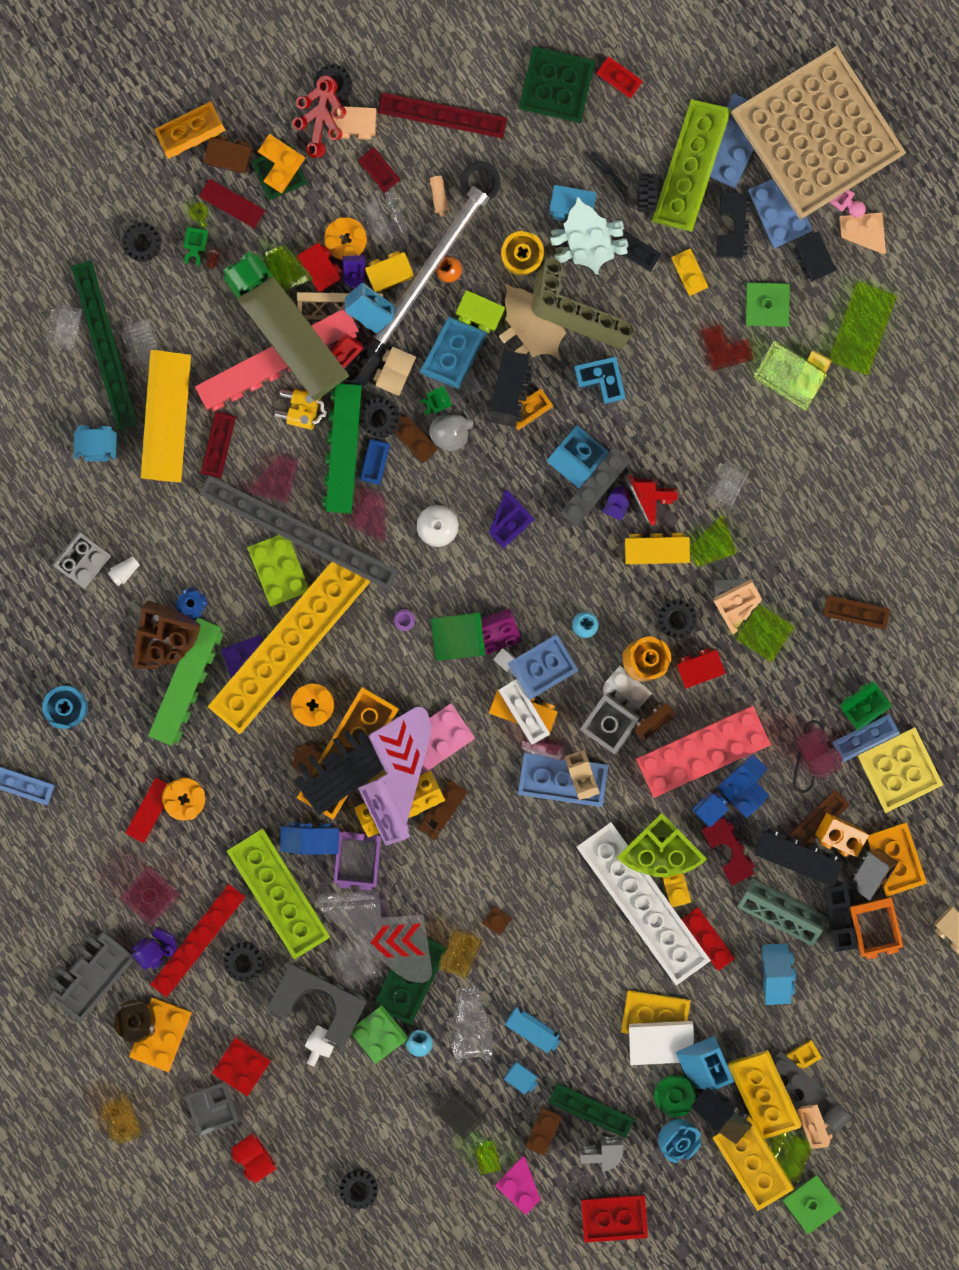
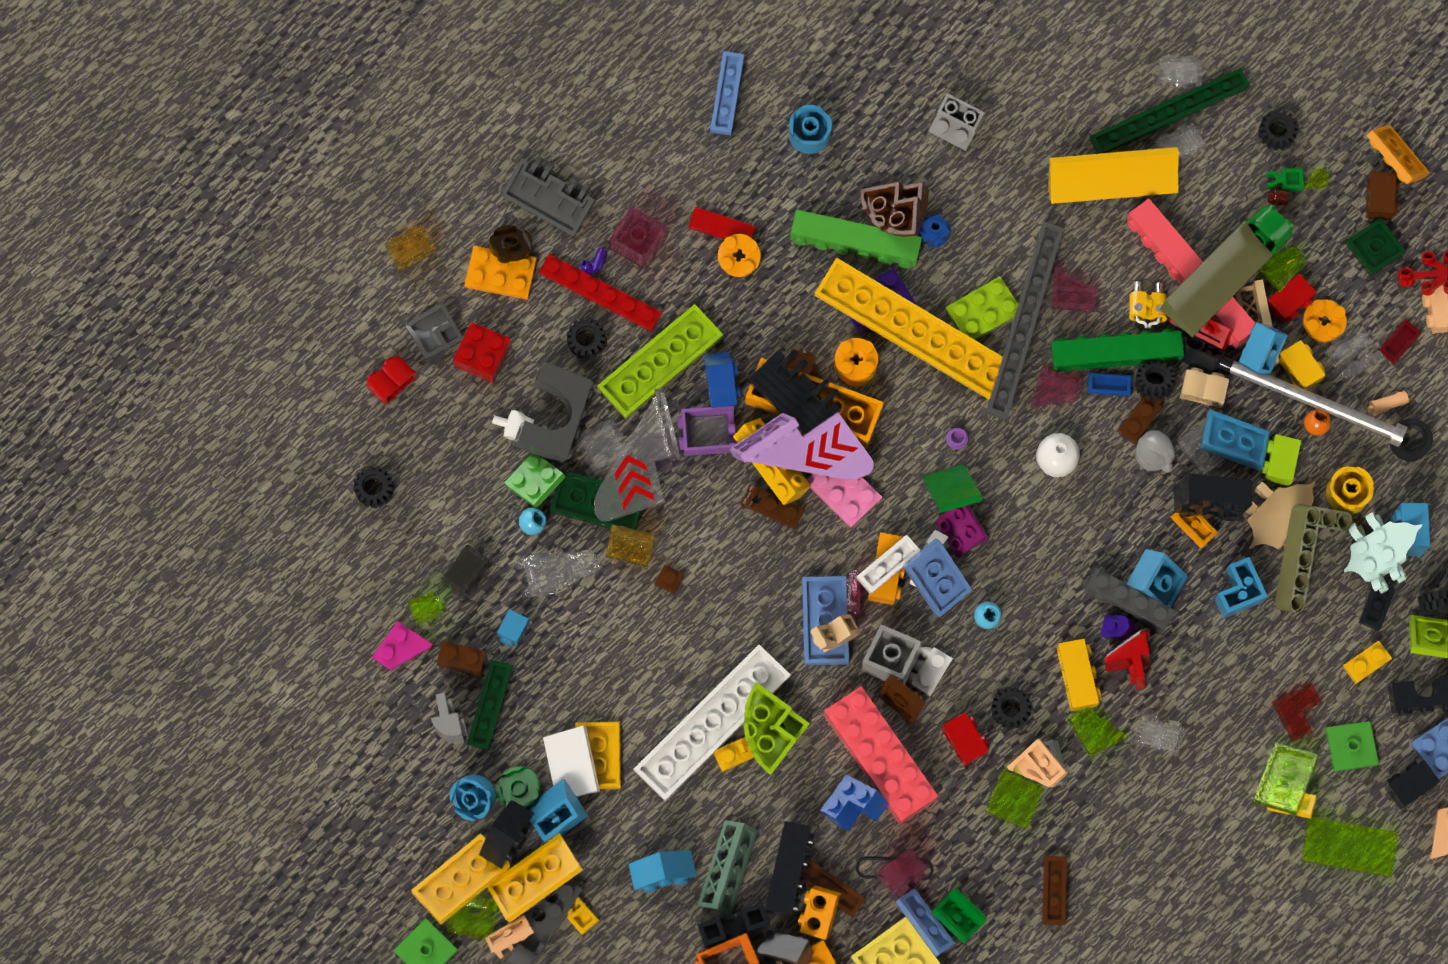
camera: 75 degrees right, 15 degrees down
(95, 443) = (1073, 115): dark azure brick -> none
(121, 572) = (953, 164): white cone -> none
(148, 953) = (579, 245): dark purple head -> none
(218, 445) = (1095, 233): dark red tile -> none
(232, 203) = (1334, 208): dark red tile -> none
(286, 163) = (1387, 249): light orange plate -> none
(354, 270) = (1297, 330): dark purple plate -> none
(436, 400) = (1184, 431): green plate -> none
(509, 521) = (1077, 524): dark purple wing -> none
(533, 1030) = (563, 631): dark azure window -> none
(614, 1218) = (381, 747): red plate -> none
(635, 662) = (976, 685): light orange brick -> none
(708, 938) = (686, 795): red plate -> none
(711, 808) = (824, 768): blue arch -> none
(738, 866) = (768, 813): dark red arch -> none

